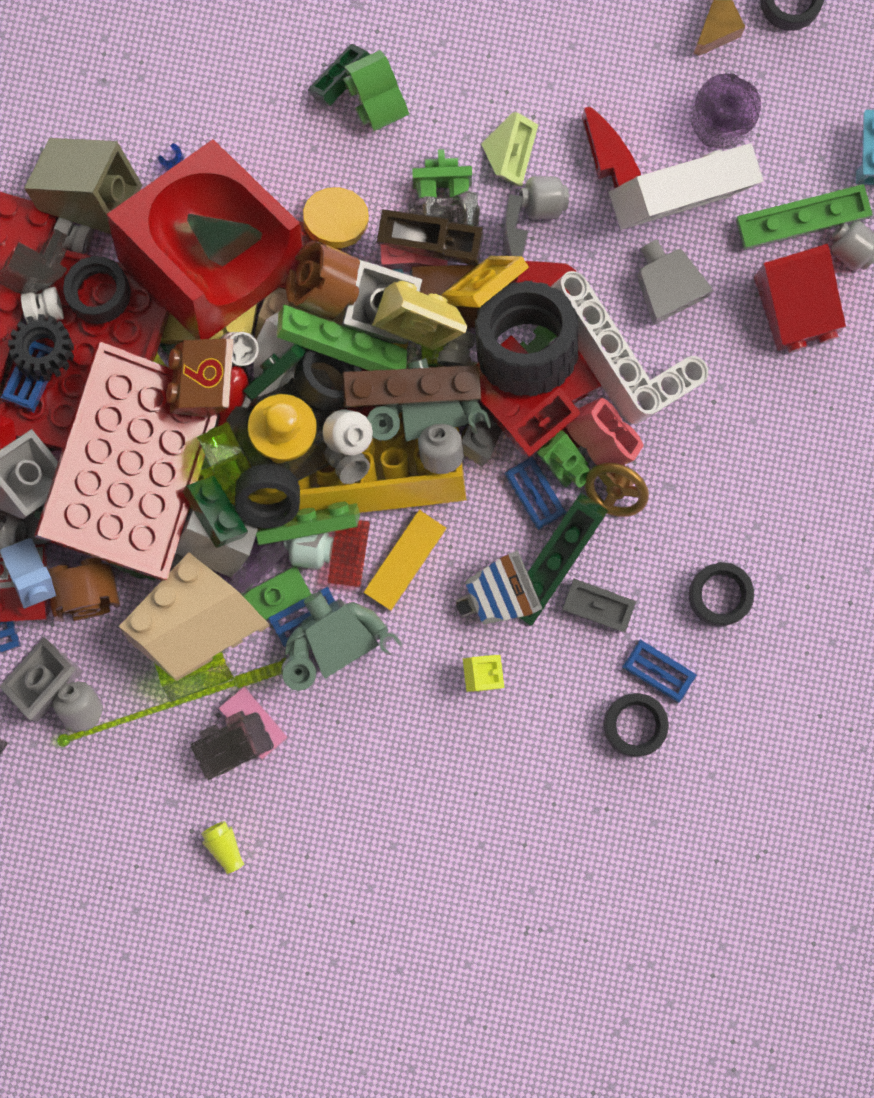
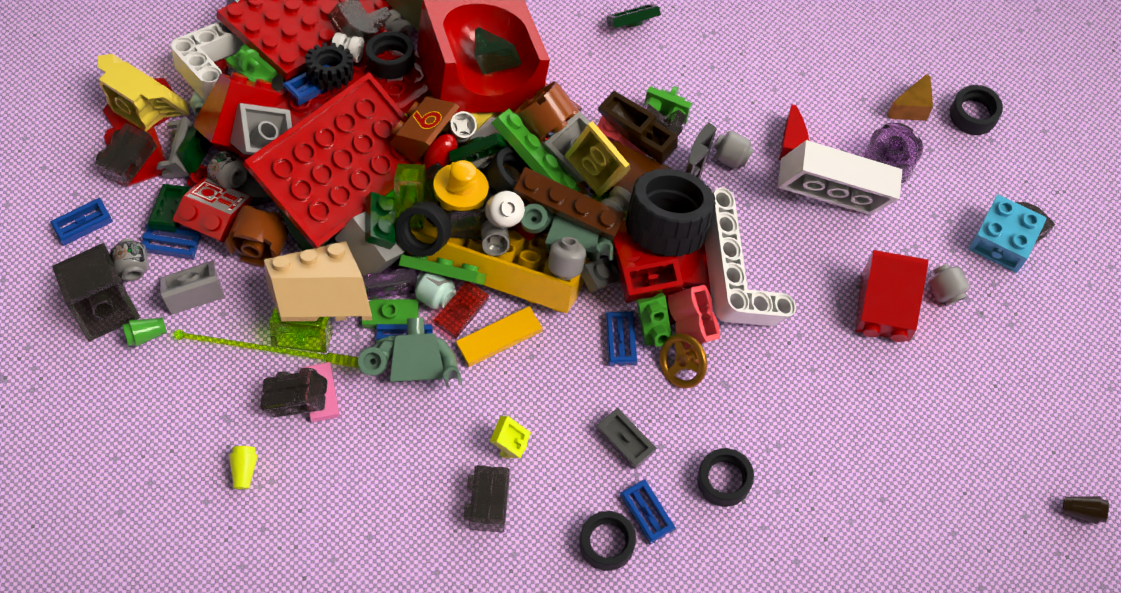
camera: 30 degrees right, 20 degrees down
(24, 758) = (143, 330): none -> bright green cone
(28, 573) = (225, 200): light blue bracket -> none
(78, 706) = (203, 312): light grey head -> none
(335, 217) = (583, 92): yellow tile -> none
(376, 91) = (652, 31): bright green brick -> none
(485, 281) = (673, 163): yellow tile -> none
(494, 747) = (488, 498): none -> clear smoke brick
(500, 592) = (556, 387): torso -> none
(510, 147) = (728, 110): yellowish green slope -> none
(563, 549) = (612, 387): dark green slope -> none
(670, 282) = (797, 245): light grey torso -> none
(803, 217) = (909, 244): bright green plate -> none

